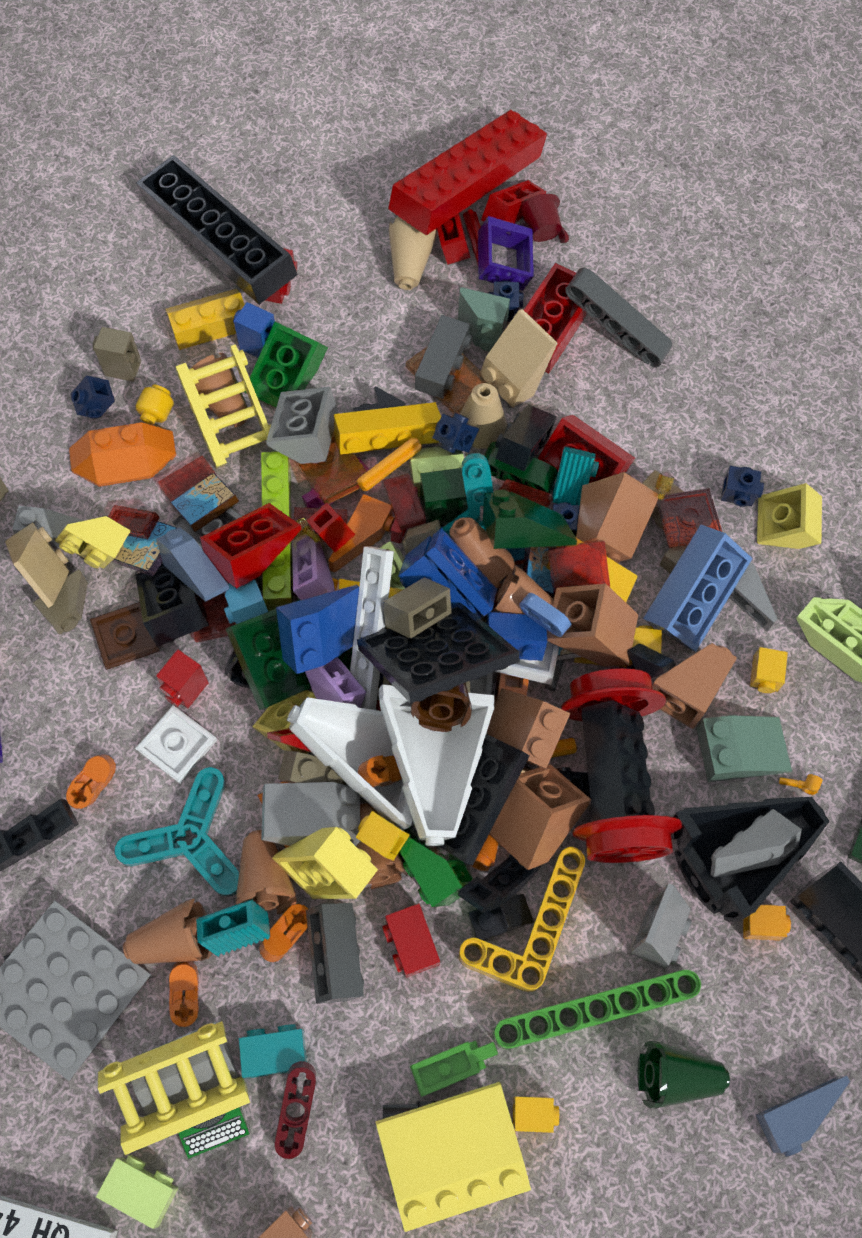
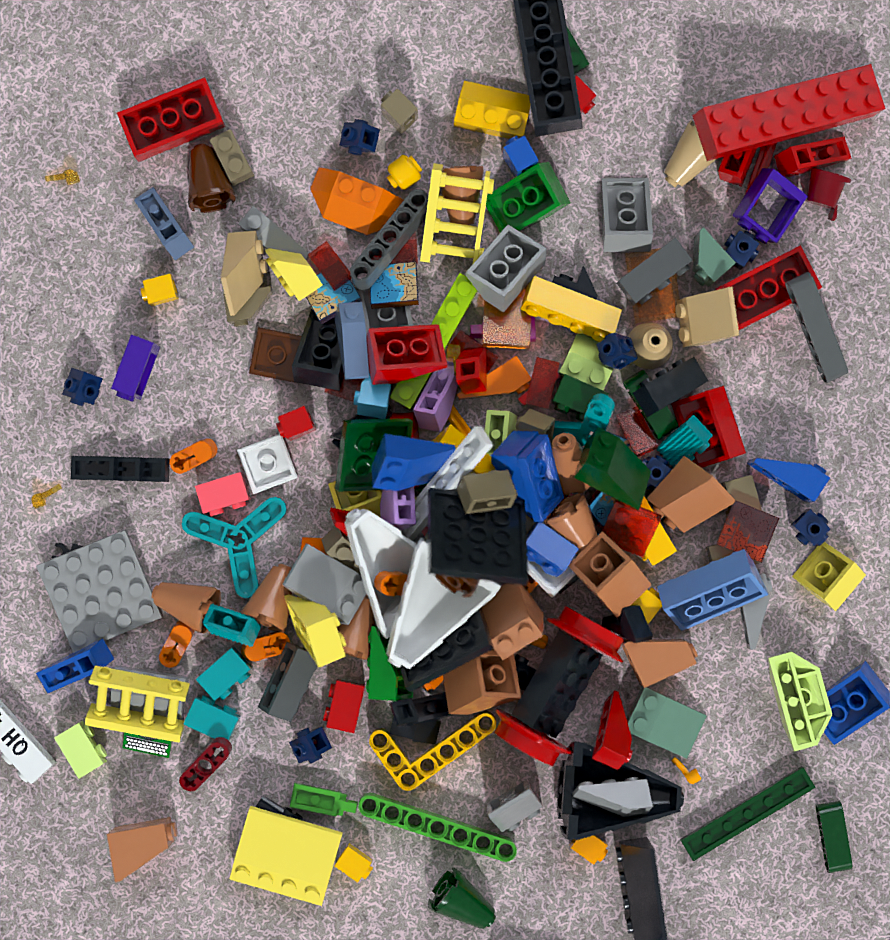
camera: 35 degrees right, 20 degrees up
(76, 1096) = (75, 666): none -> blue slope
(145, 799) = (223, 493): none -> coral brick
(175, 465) = (389, 250): none -> dark grey beam
(258, 991) = (224, 674): none -> teal brick
(381, 835) = (363, 632): yellow brick -> none
(386, 332) = (626, 215): none -> light grey slope
(389, 464) = (550, 345): light orange axle -> none
(398, 1014) = (310, 745): none -> dark blue brick
(545, 614) = (575, 551): medium blue beam -> none
(664, 485) = (745, 494): clear yellow hand -> none
(692, 450) = (800, 479): none -> blue slope
(708, 783) = (613, 734): none -> red slope
(768, 670) = (722, 679): yellow brick -> none

